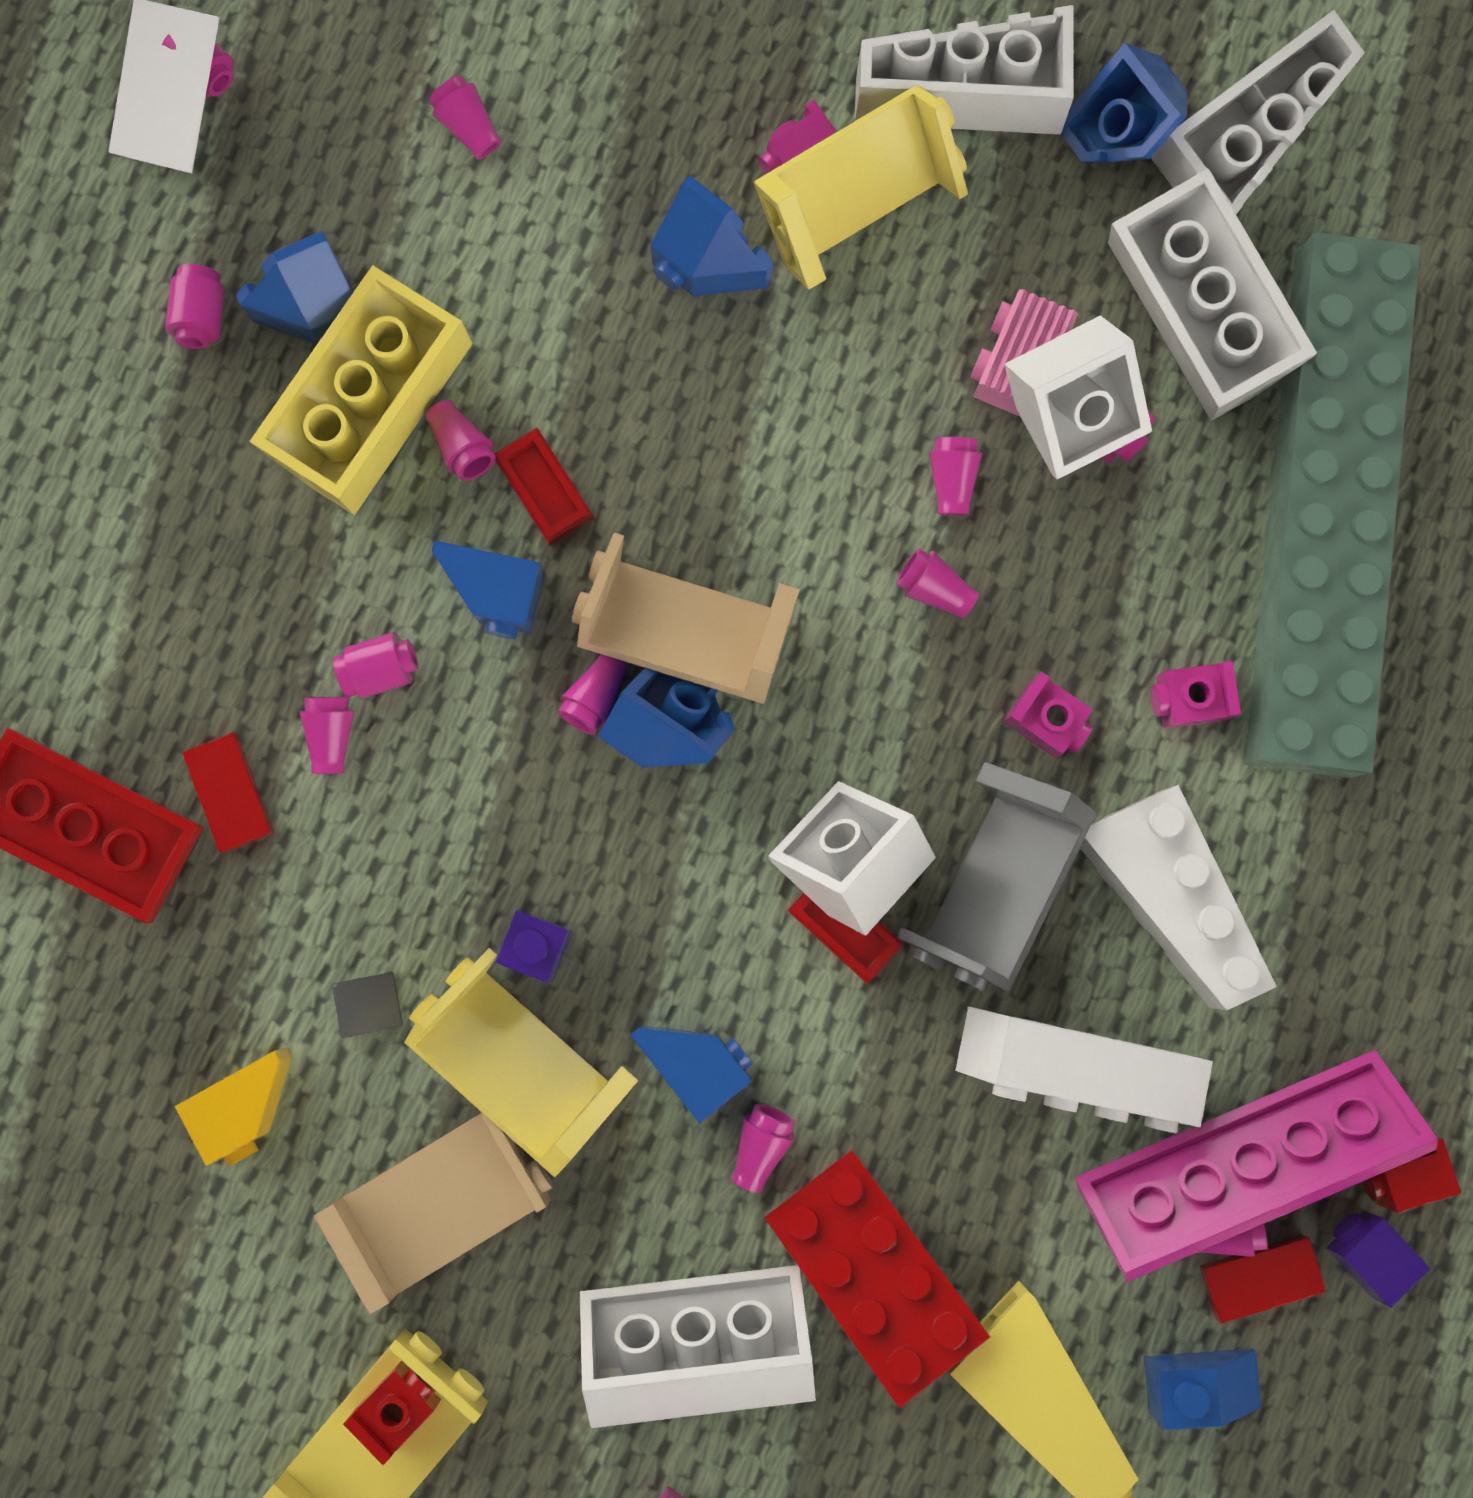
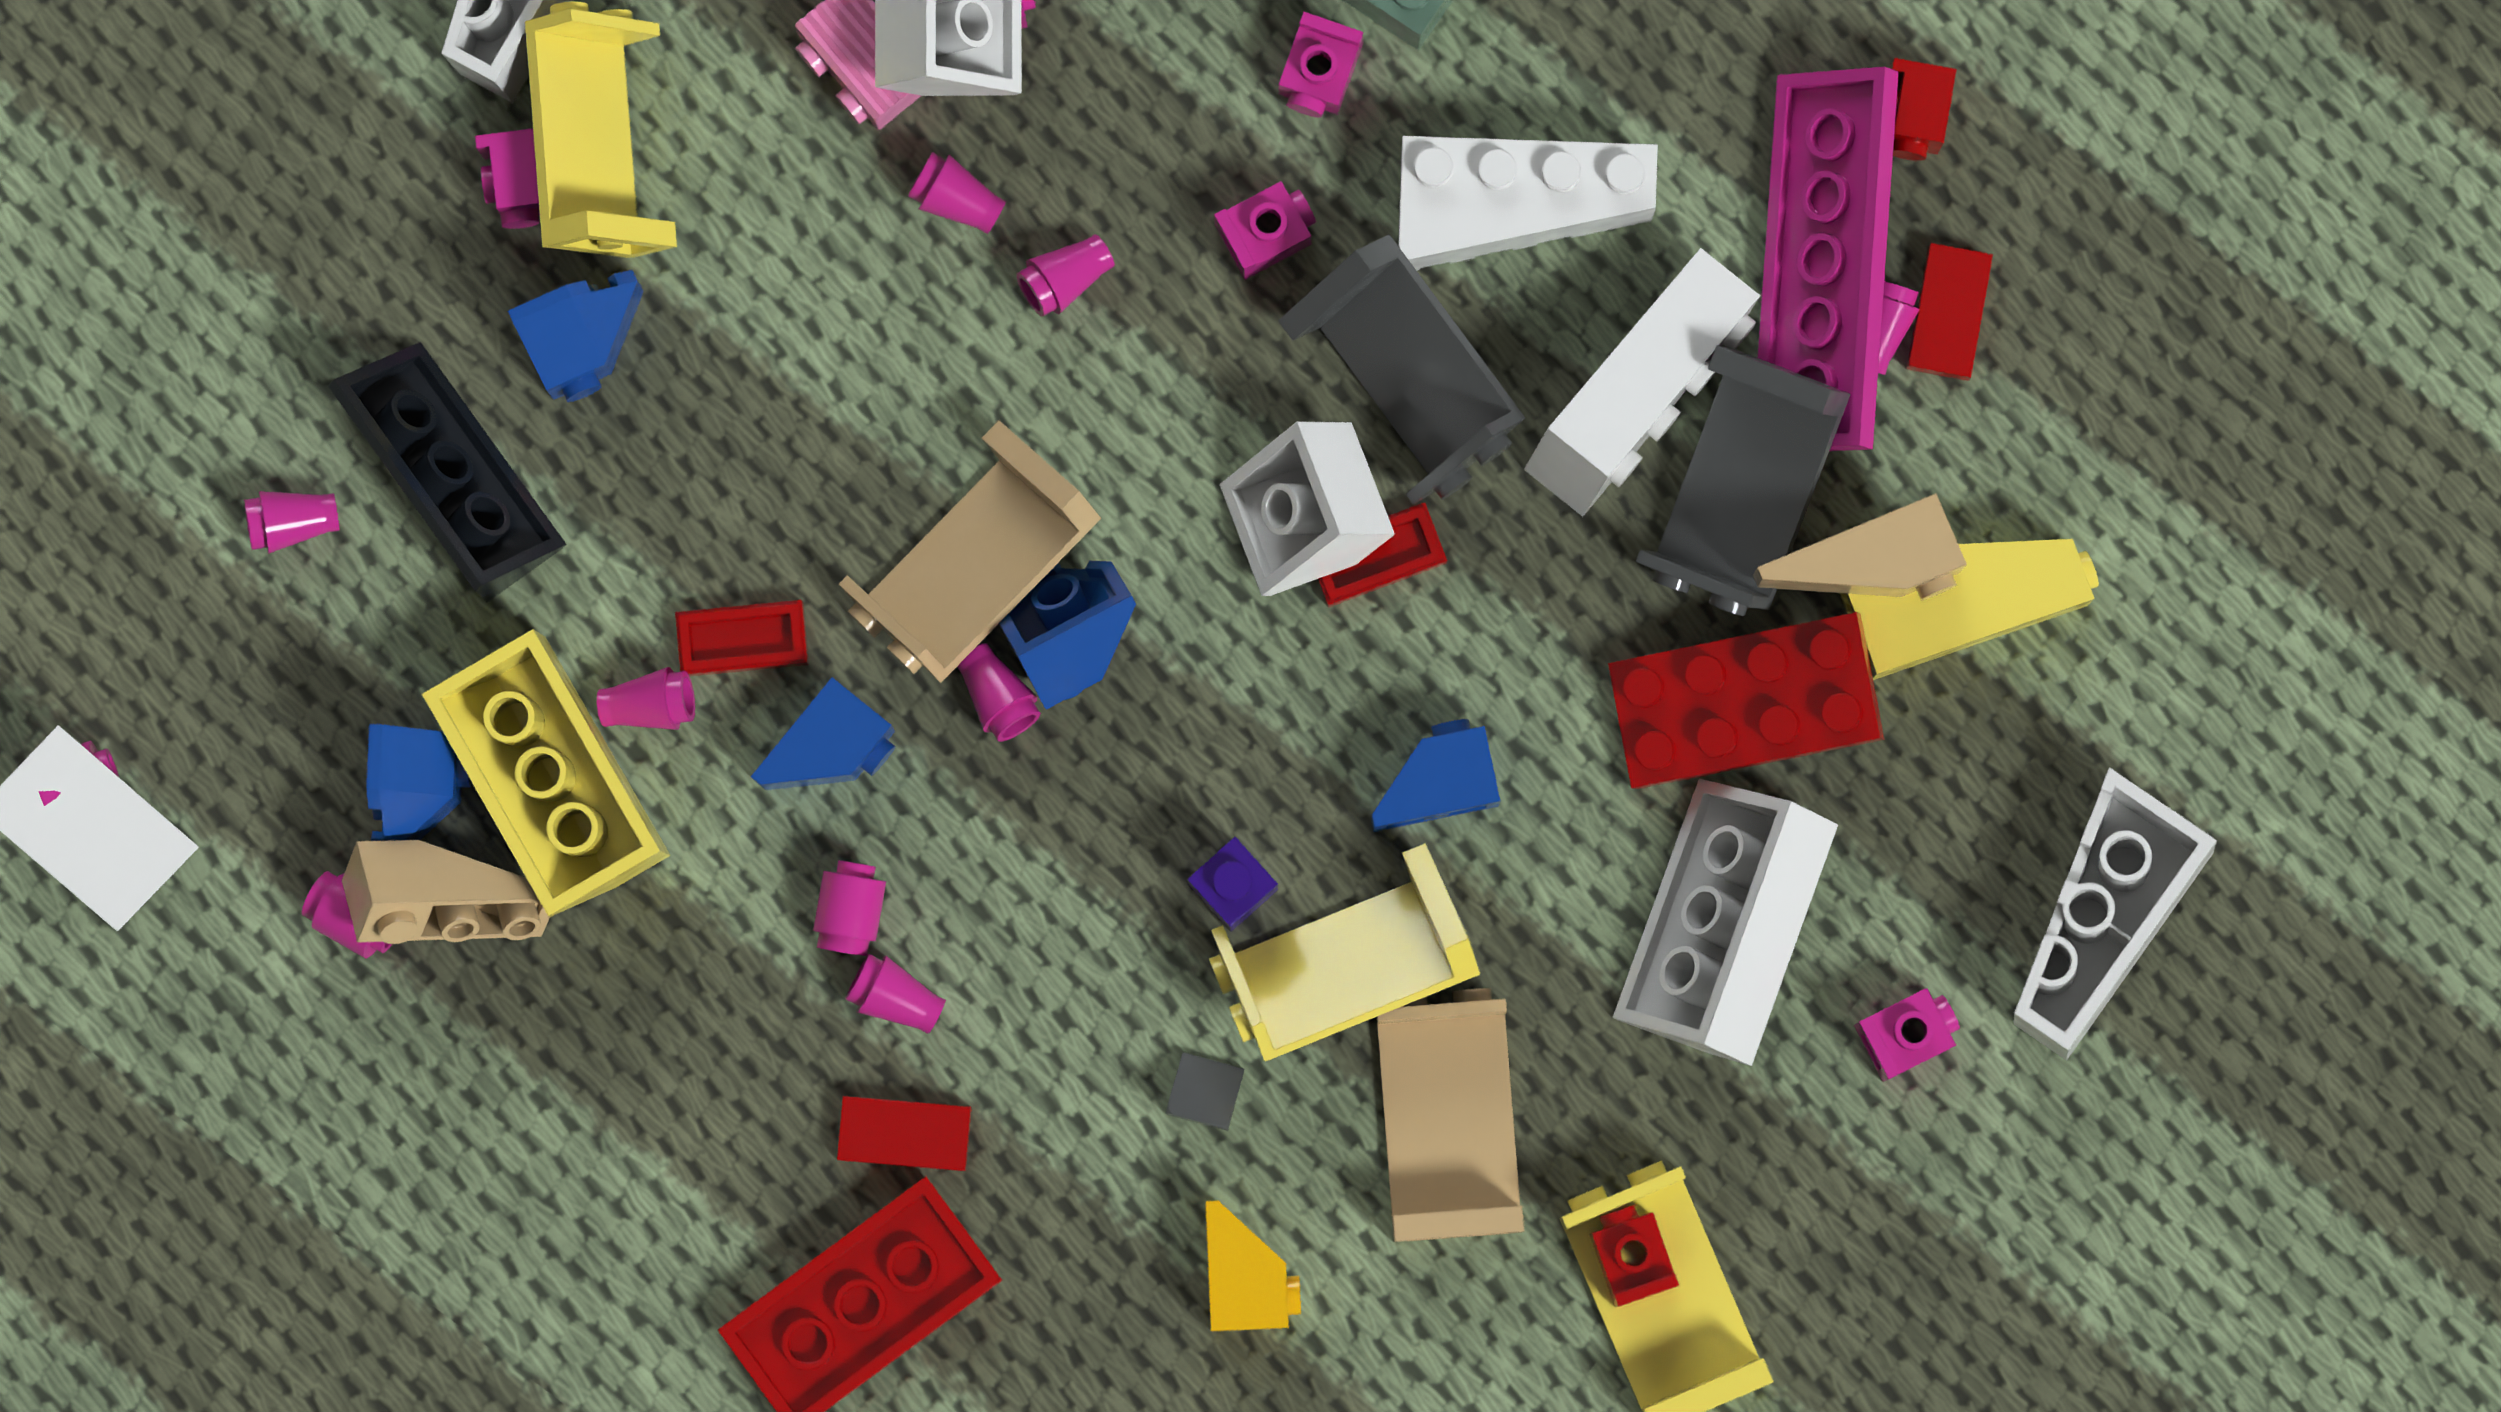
camera: 55 degrees left, 0 degrees up
(229, 350) = (430, 893): none -> tan slope
(556, 207) = (449, 468): none -> black slope
(762, 1144) = (1558, 754): dark pink cone -> none
(1048, 1192) = (1747, 480): none -> dark grey panel
(1050, 1343) = (1882, 557): none -> tan slope
(1202, 1388) = (2023, 427): blue slope -> none
(1376, 1257) = (1981, 186): dark purple brick -> none

